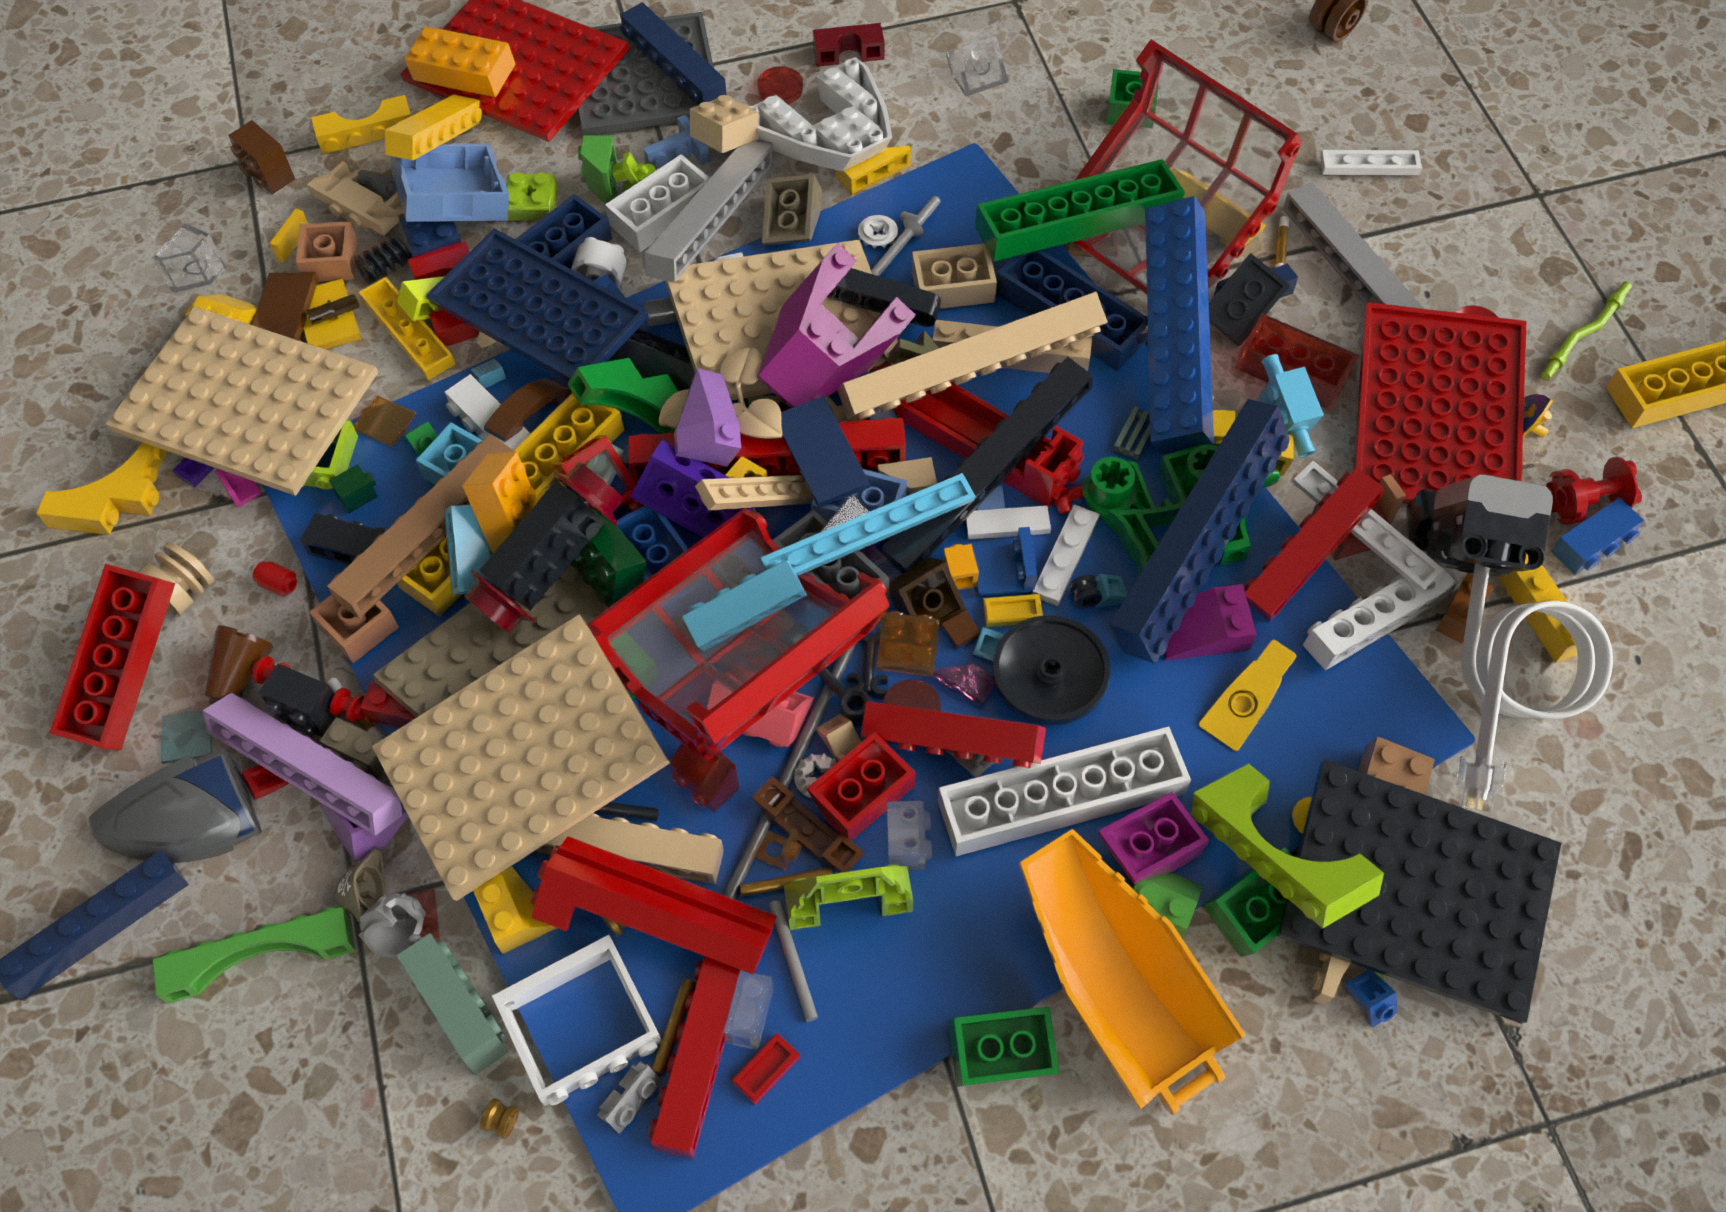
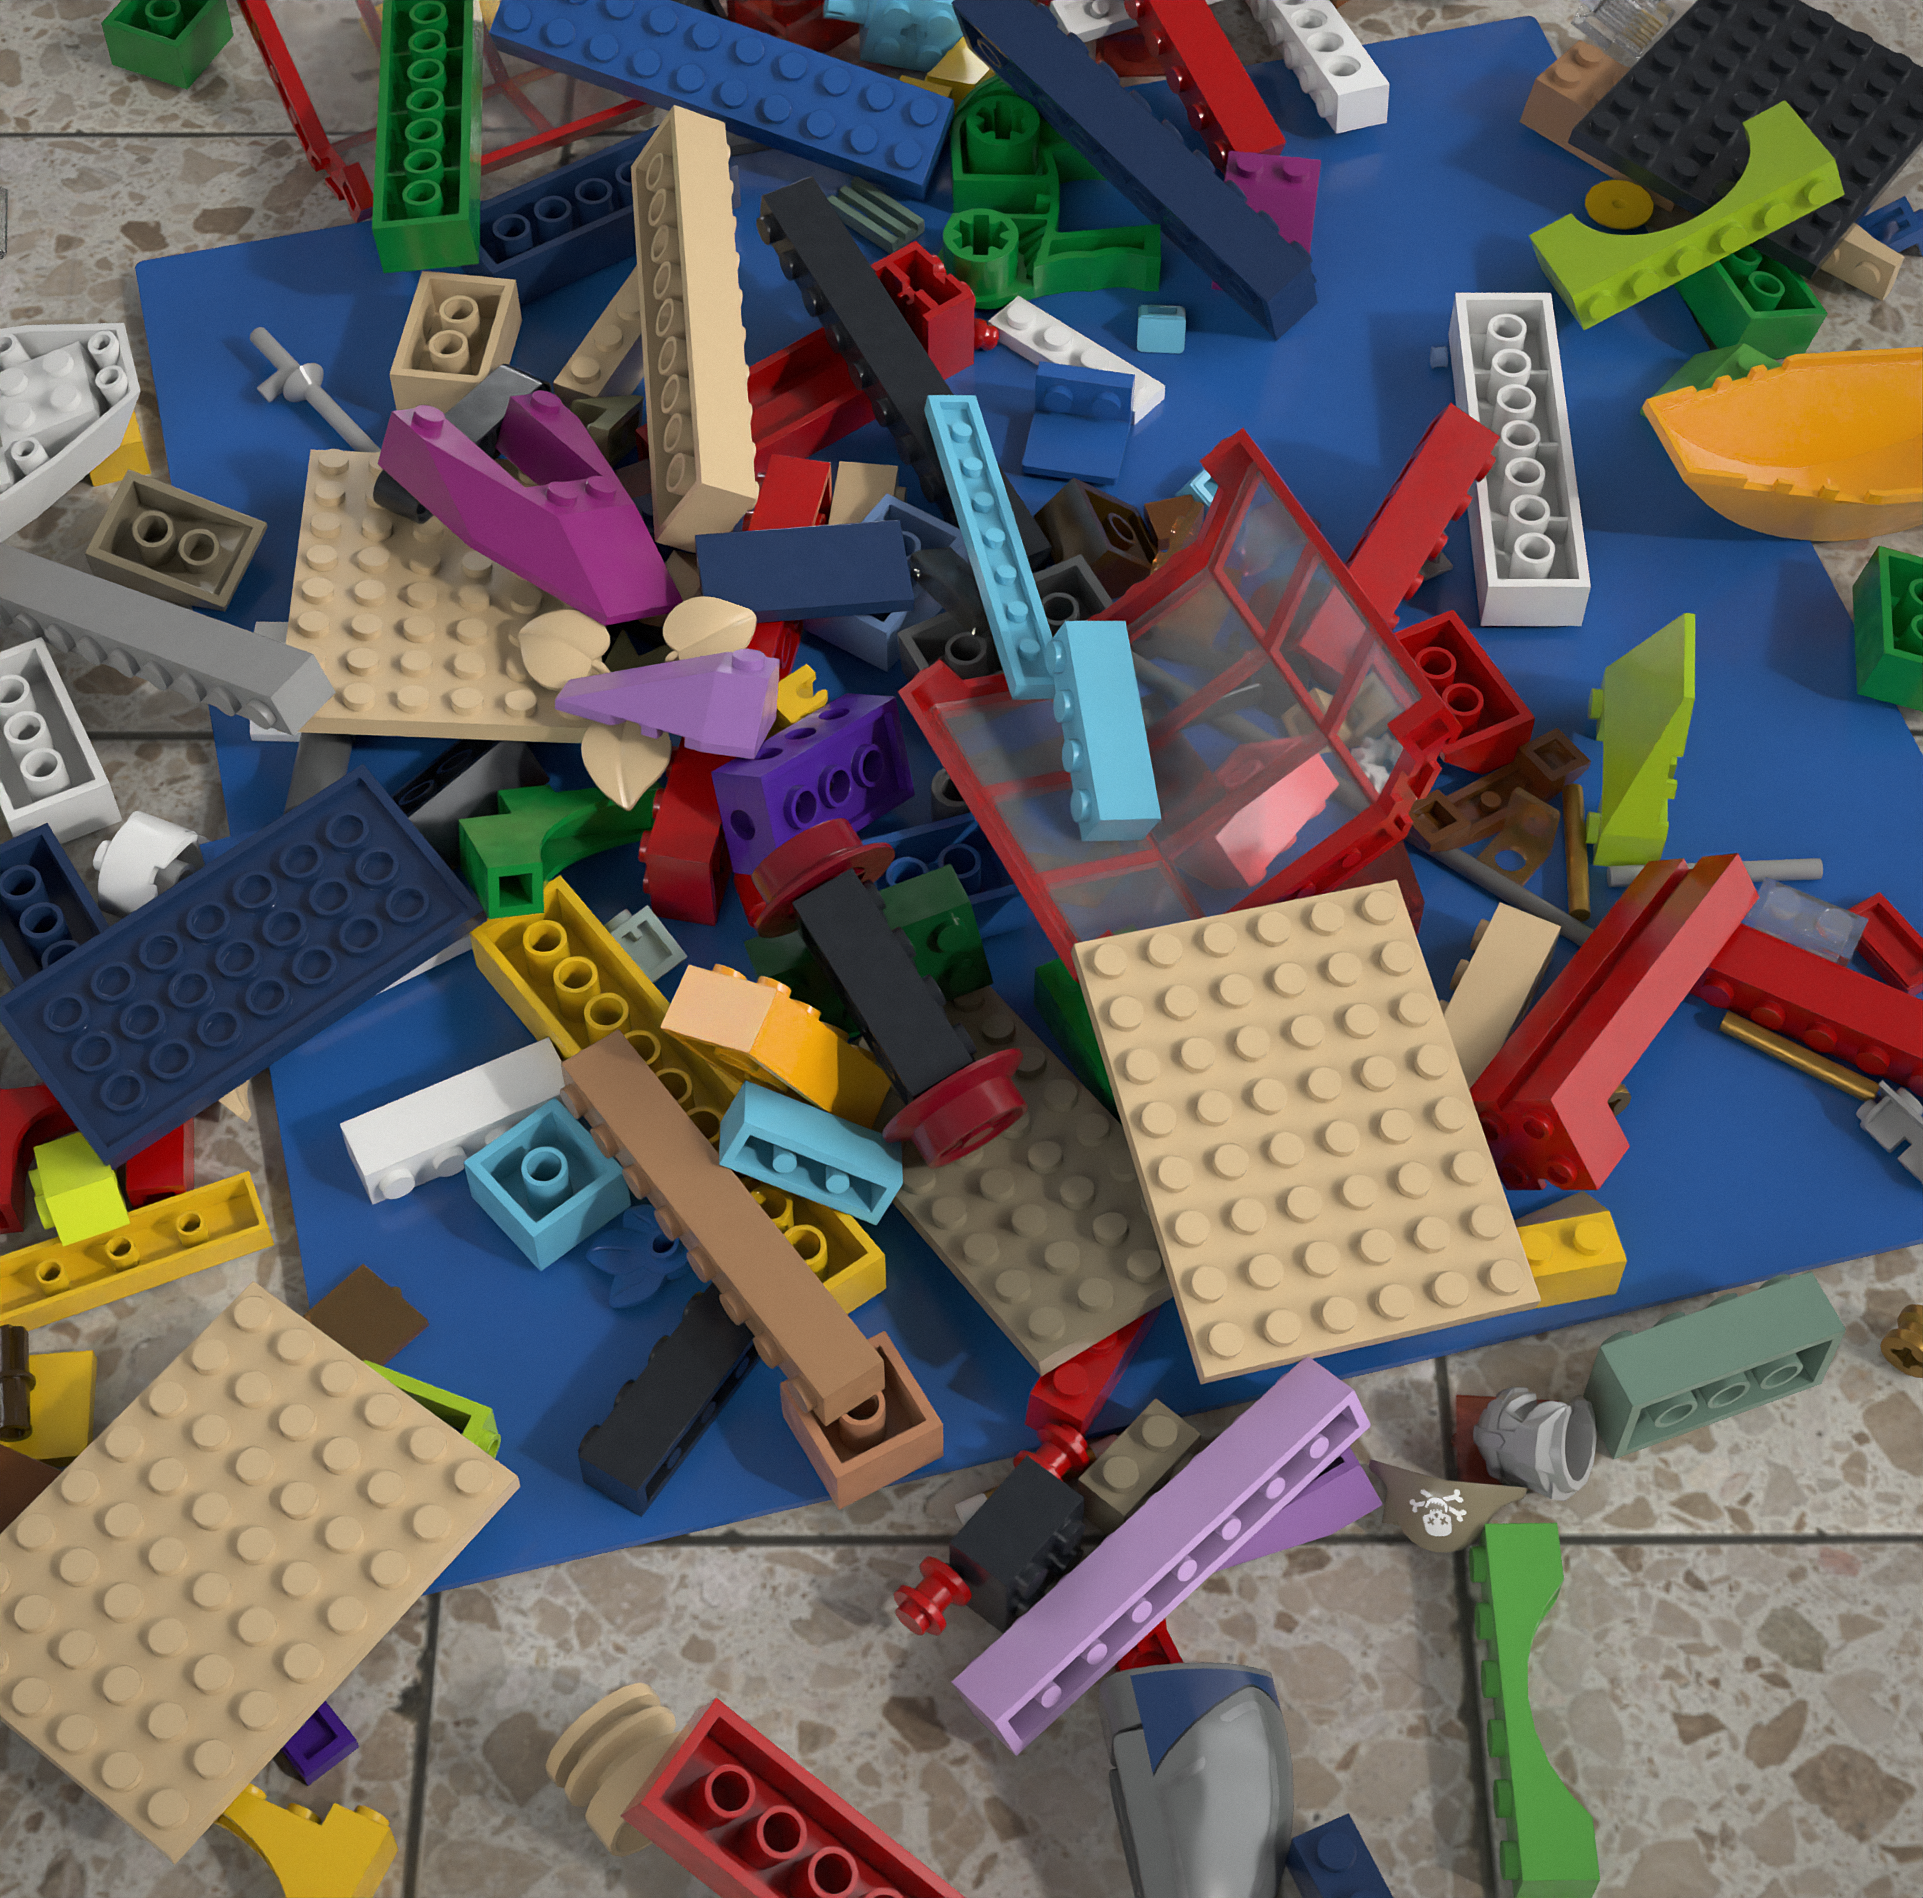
camera: 75 degrees left, 5 degrees down
(184, 736) = (1000, 1812): clear light blue piece -> none
(233, 661) = (880, 1677): reddish brown cone -> none
(239, 488) = (408, 1646): dark pink panel -> none
(275, 578) = (682, 1584): red brick -> none
(354, 488) = (525, 1393): dark green brick -> none
(420, 437) = (448, 1246): green bracket -> none
(488, 373) = (319, 1114): medium azure slope -> none
(522, 404) = (474, 1037): reddish brown slope -> none
(553, 977) = (1850, 1139): white window -> none
(592, 449) = (664, 914): red window -> none
(753, 492) = (864, 677): tan plate -> none
(878, 223) = (288, 422): white gear -> none
(907, 834) = (1544, 668): clear brick -> none
(962, 565) = (1051, 473): light orange brick -> none
(1006, 521) = (997, 387): white tile -> none
(1011, 609) = (1158, 451): yellow tile -> none
(1051, 670) = (1308, 407): black dish -> none
(1085, 592) = (1162, 347): black wheel -> none
(1155, 839) = (1626, 357): magenta slope -> none
(1248, 697) = (1404, 216): yellow piece -> none

